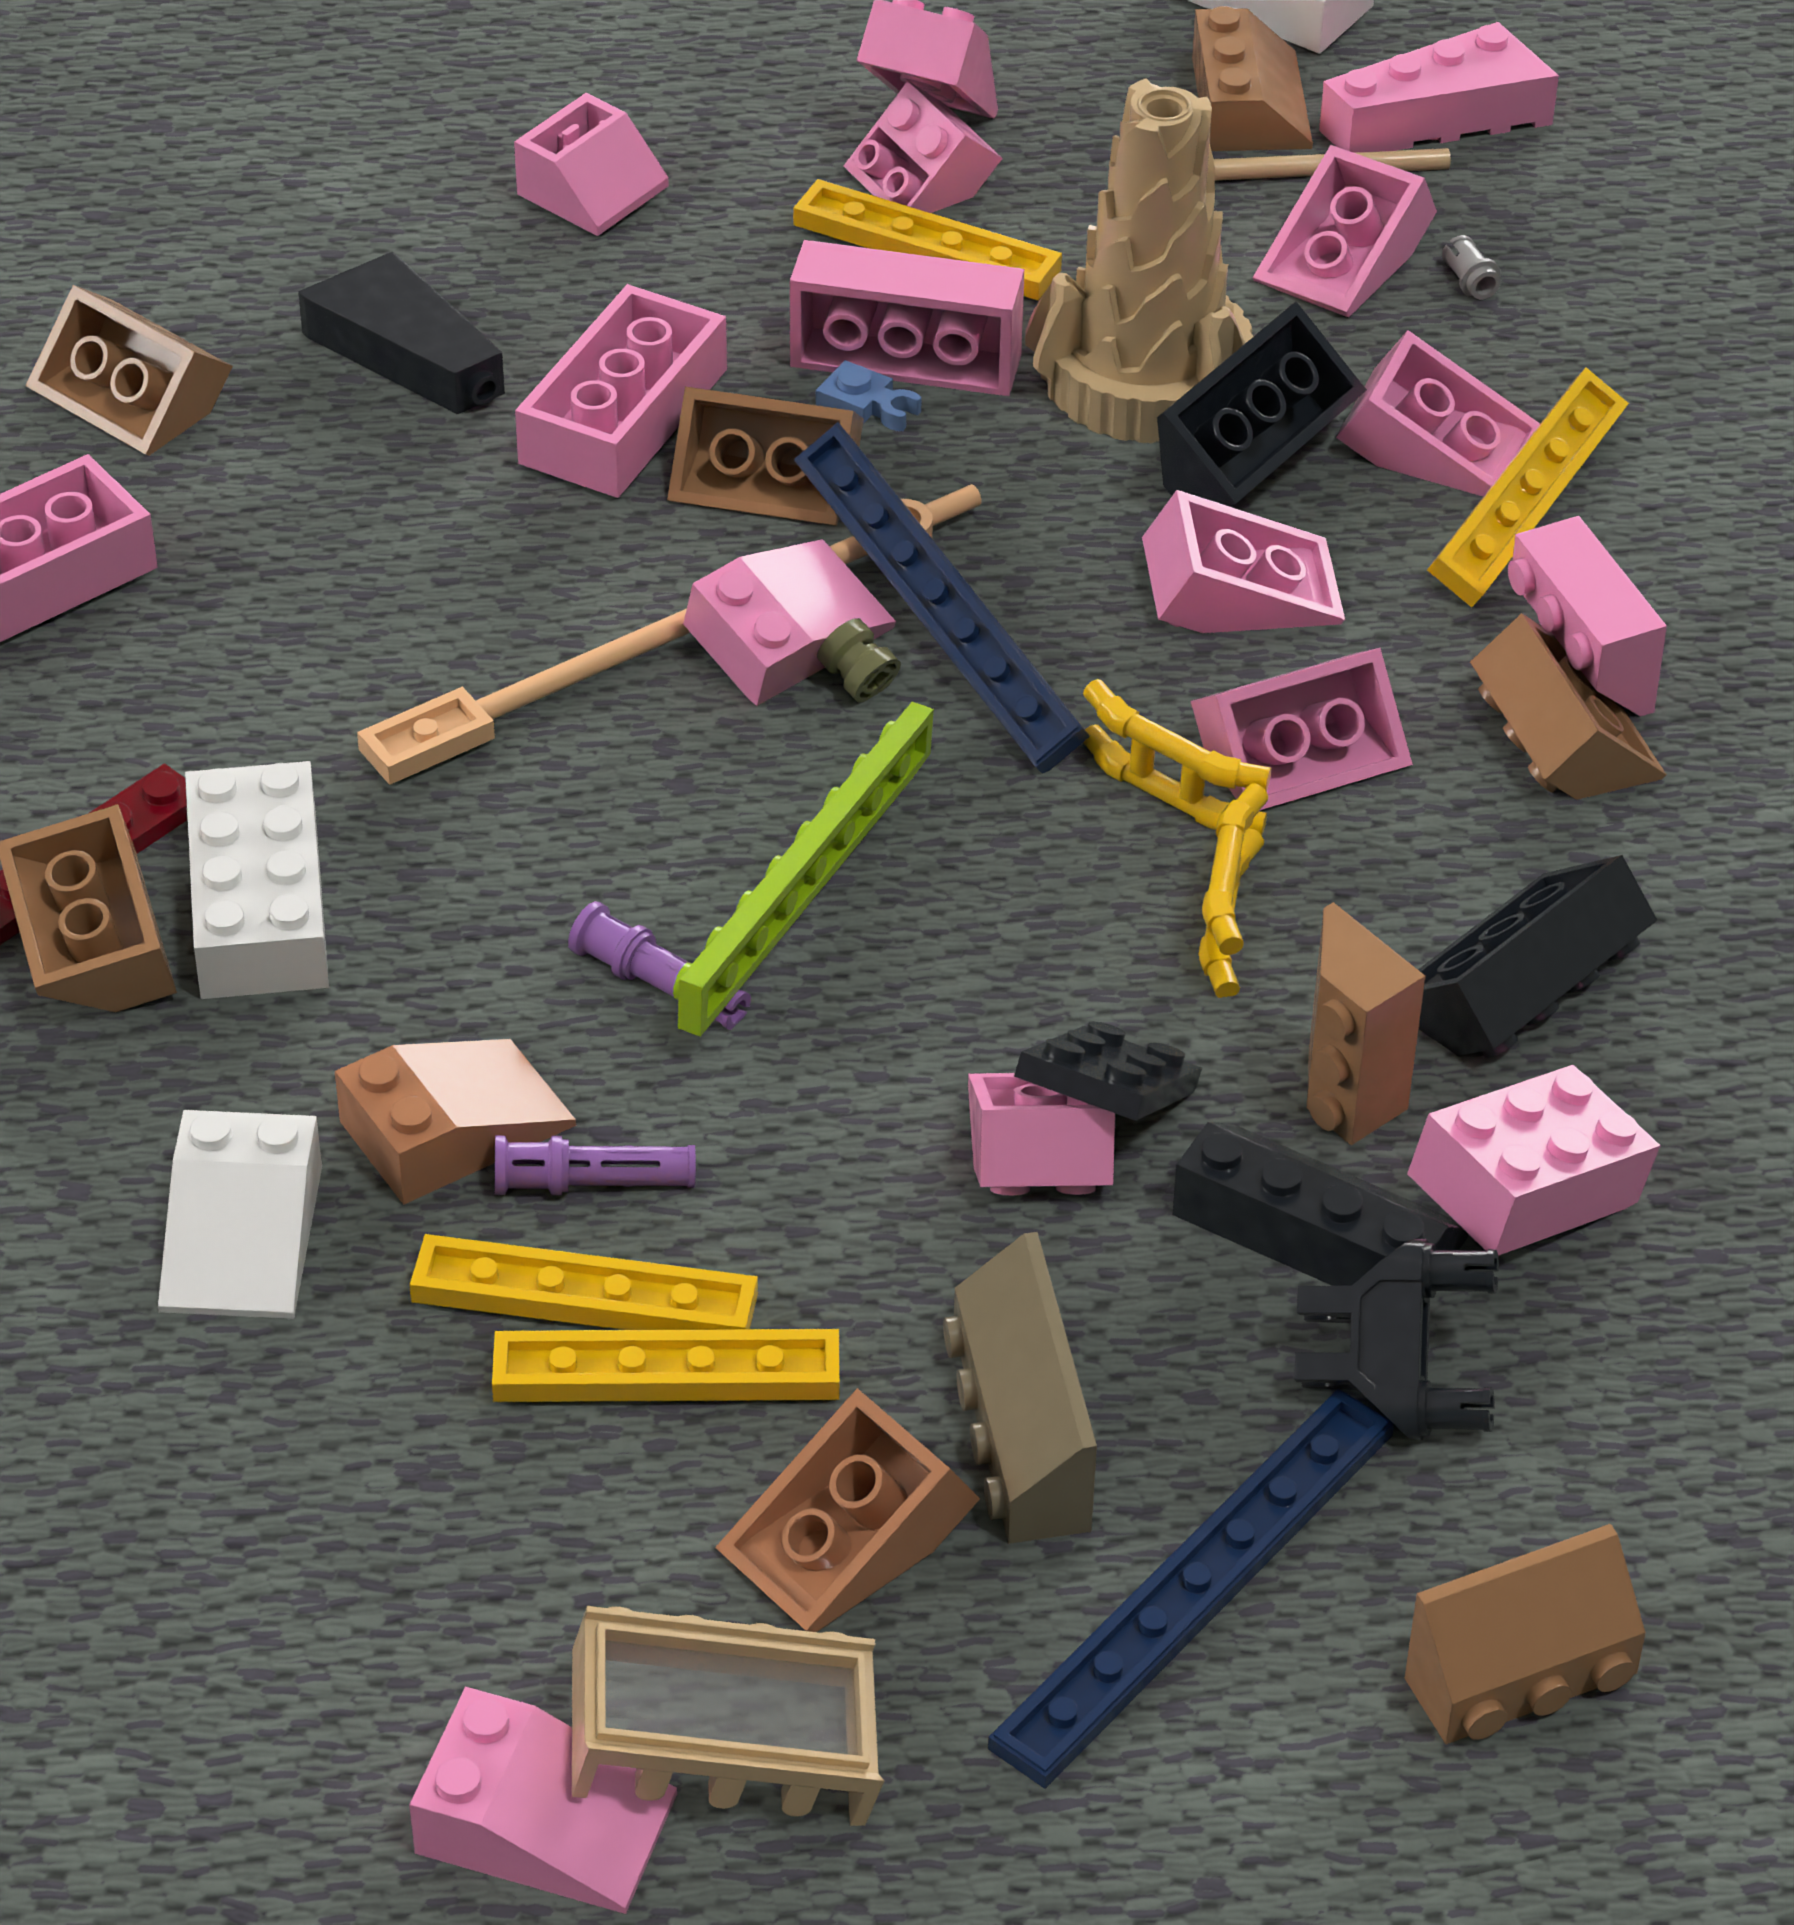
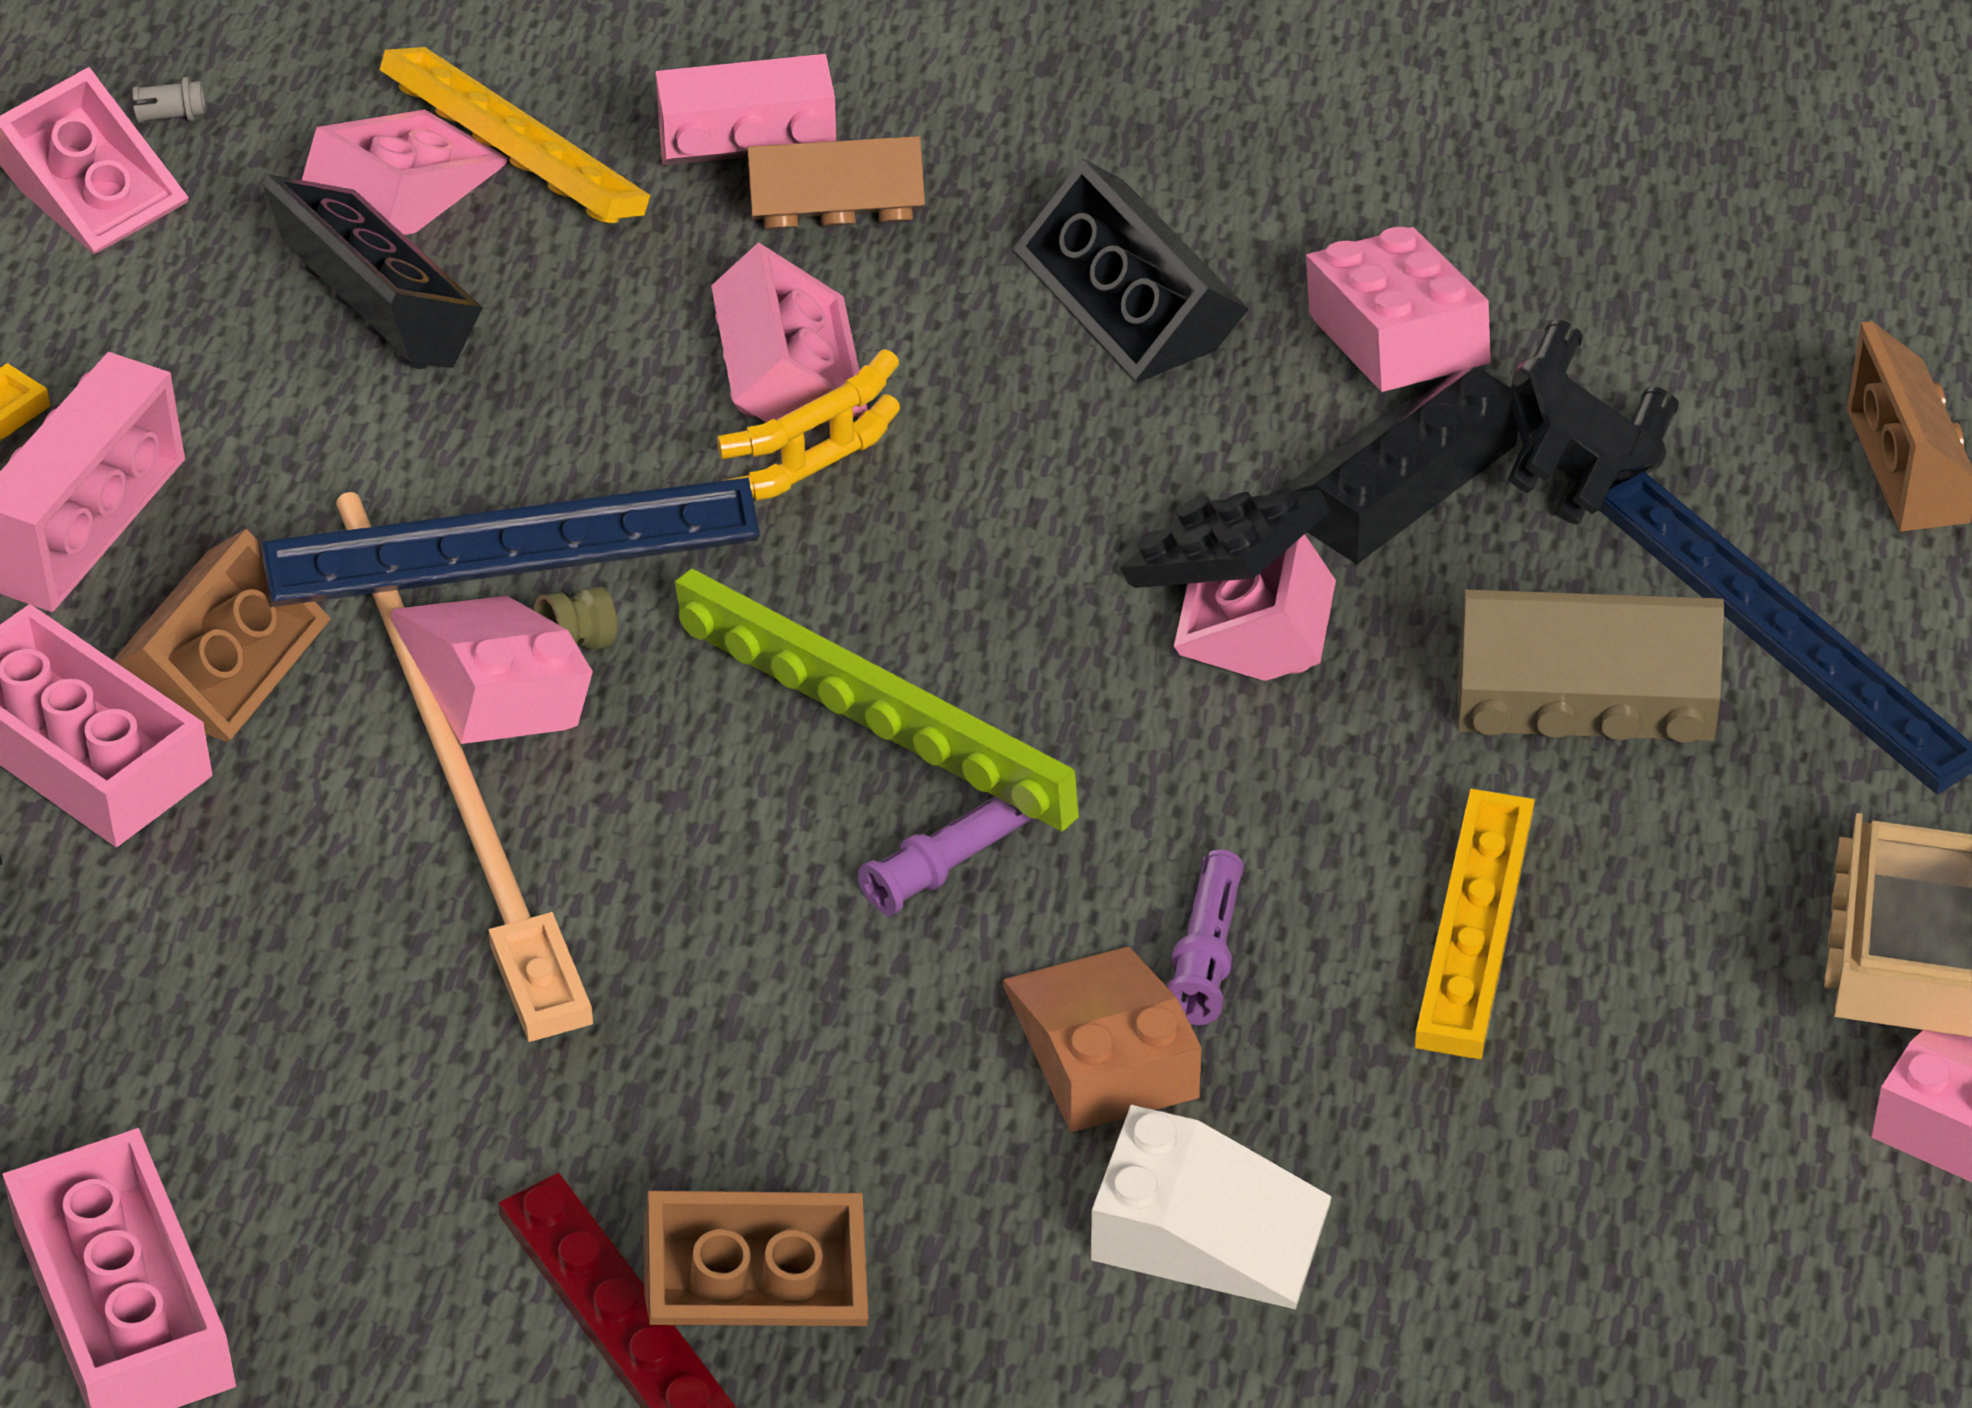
camera: 75 degrees left, 0 degrees up
(255, 880) = (721, 1126): white brick -> none
(579, 1287) = (1364, 968): yellow plate -> none
(847, 1516) = (1689, 820): nougat slope -> none
(868, 394) = (140, 562): medium blue plate -> none
(1153, 291) = (185, 267): tan cone -> none
(1233, 853) = (1022, 421): yellow piece -> none
(1237, 570) = (550, 346): bright pink slope -> none
(1361, 1029) = (1238, 362): medium nougat slope -> none

